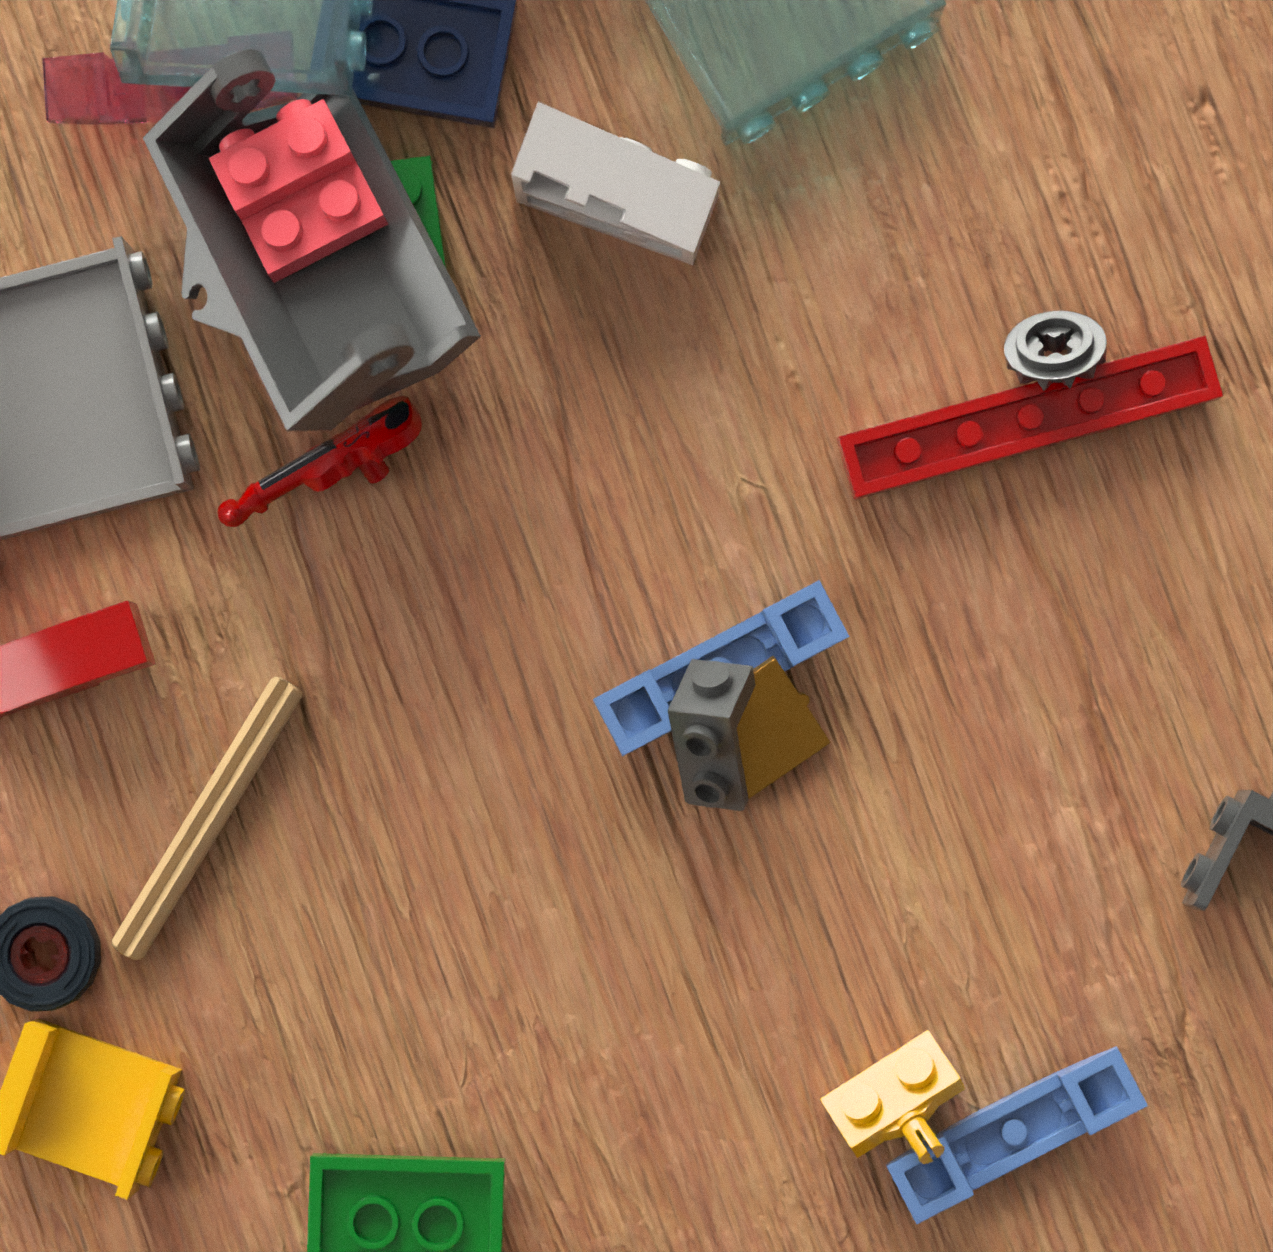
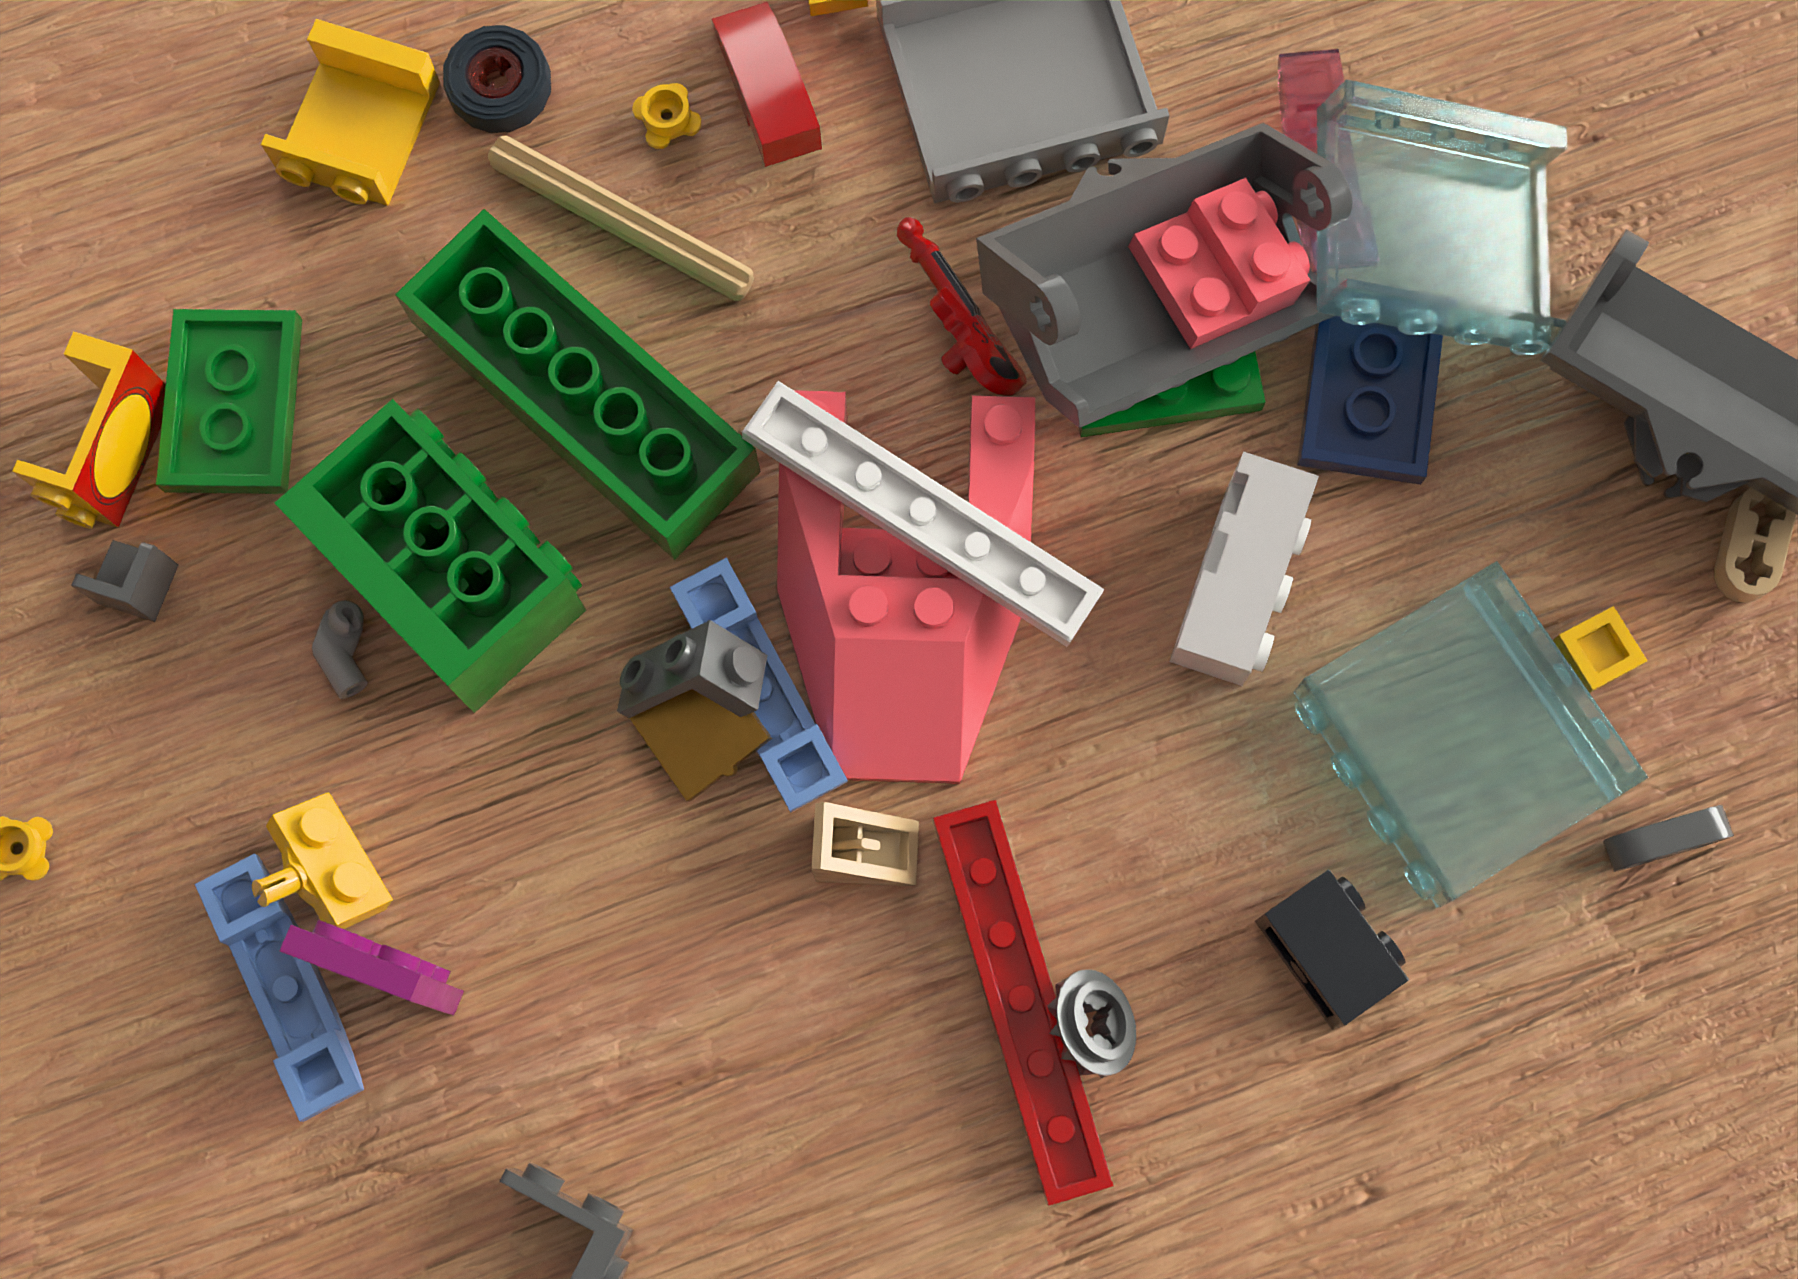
camera: 90 degrees right, 10 degrees down
(72, 766) = (664, 99): none -> yellow plate
(399, 854) = (580, 383): none -> green brick
(559, 499) = (922, 513): none -> white tile
(596, 1038) = (436, 552): none -> green brick
(653, 525) = (884, 636): none -> coral wedge
(669, 1100) = (336, 645): none -> light grey arm
(882, 566) = (863, 846): none -> tan slope
(984, 119) = (1334, 949): none -> black brick
(1008, 1049) = (373, 965): none -> magenta plate

